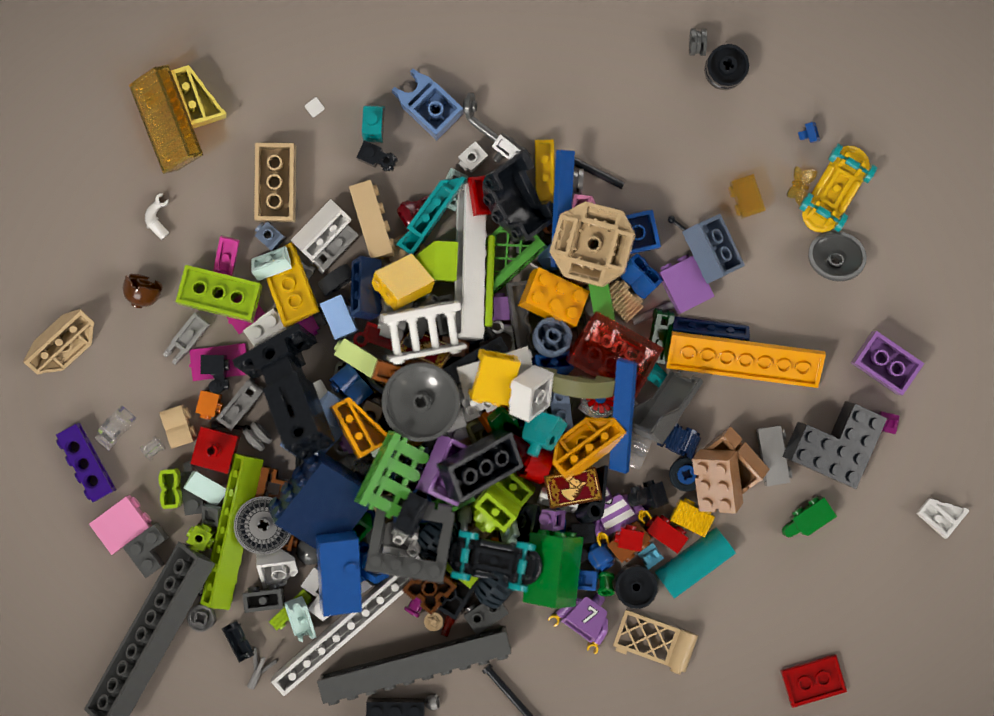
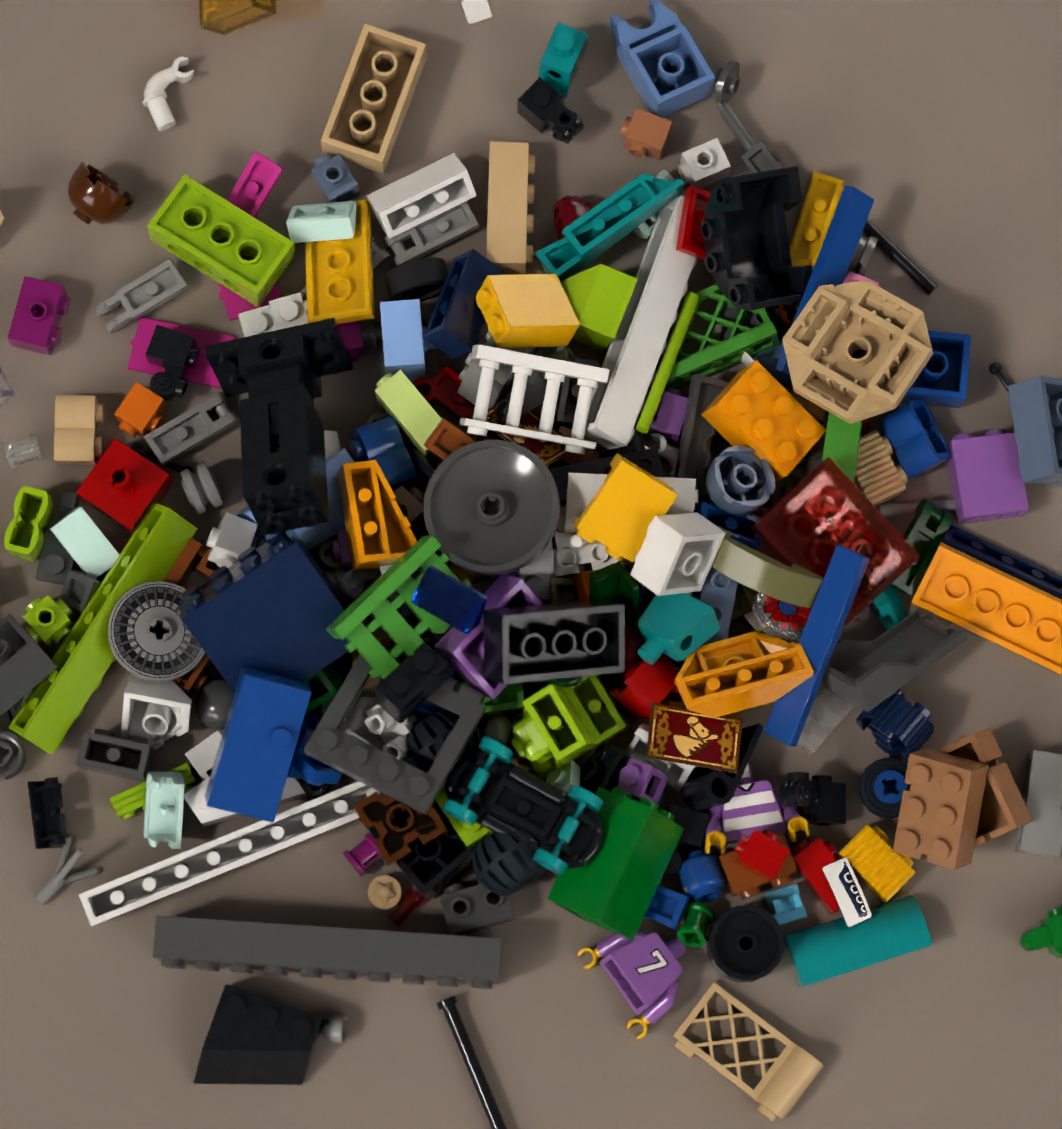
camera: 20 degrees right, 10 degrees down
(133, 369) = (38, 316): none -> magenta brick
(283, 463) = (230, 540): none -> white brick
(416, 465) = (450, 600): none -> clear blue slope
(434, 151) = (645, 134): none -> nougat brick
(681, 540) = (847, 892): none -> white sticker

